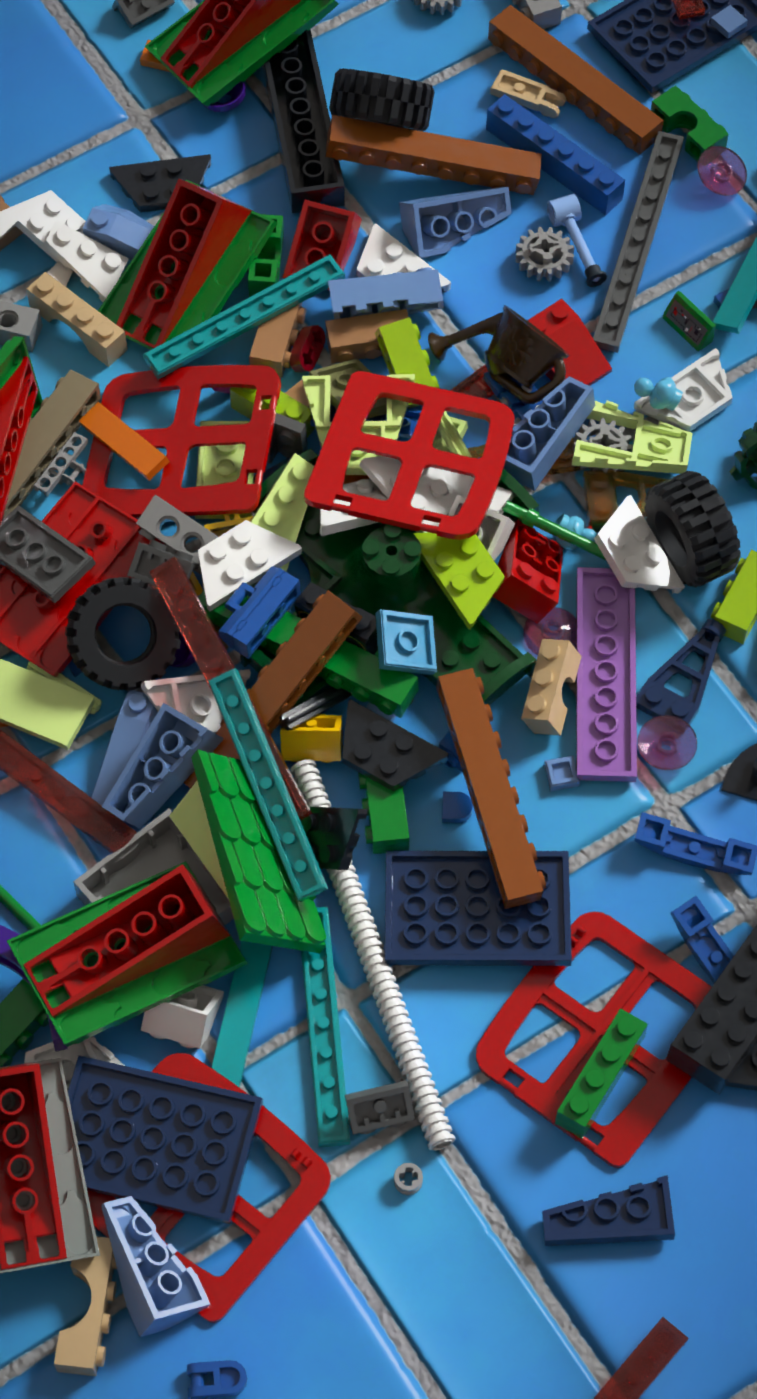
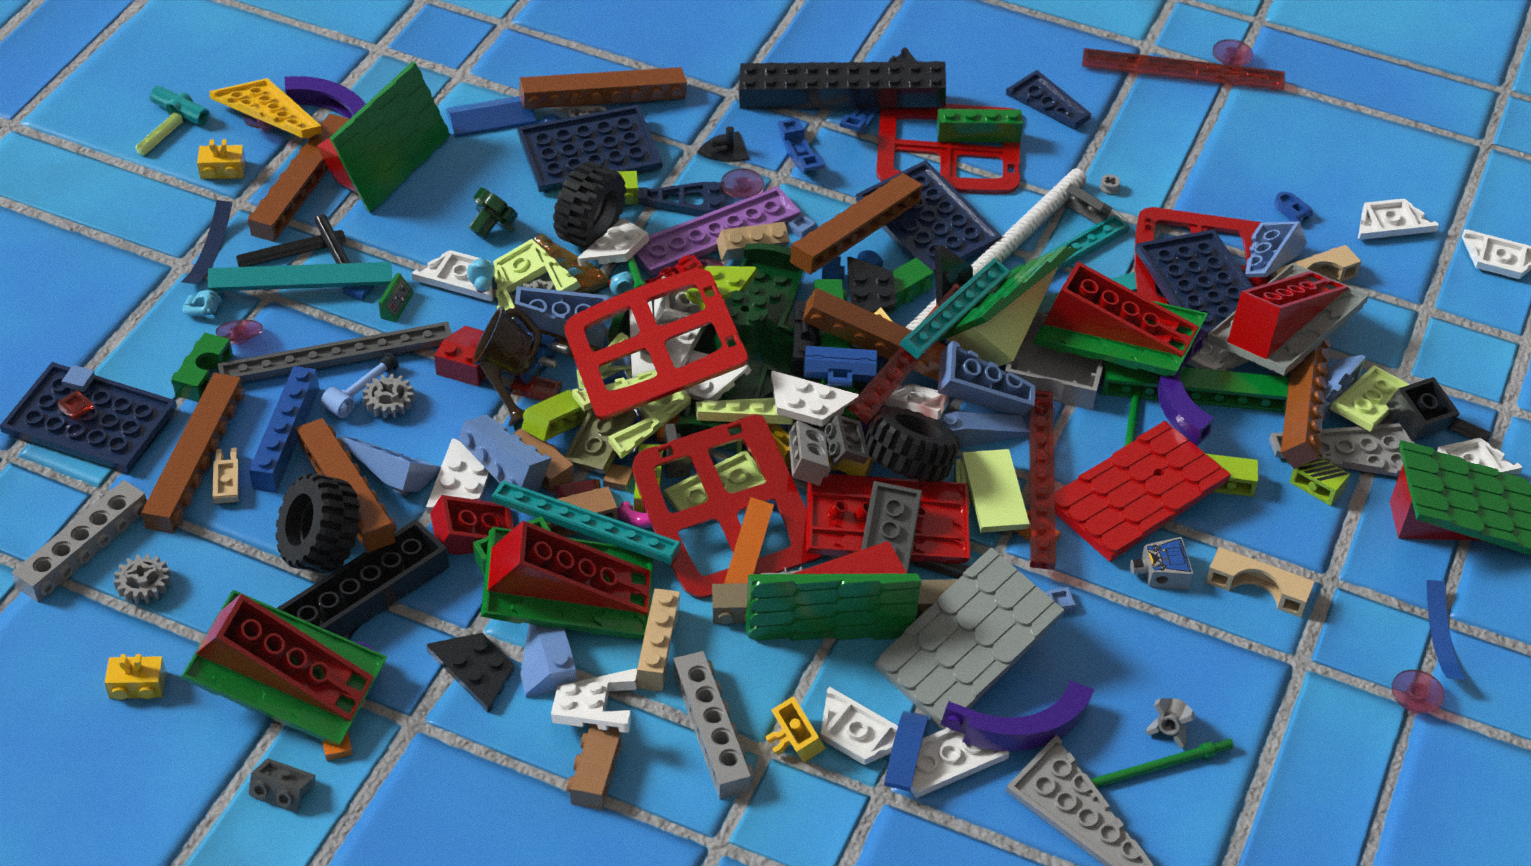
camera: 125 degrees left, 15 degrees down
(89, 259) = (597, 661): white wing -> none
(406, 642) = (797, 287): dark azure tile -> none

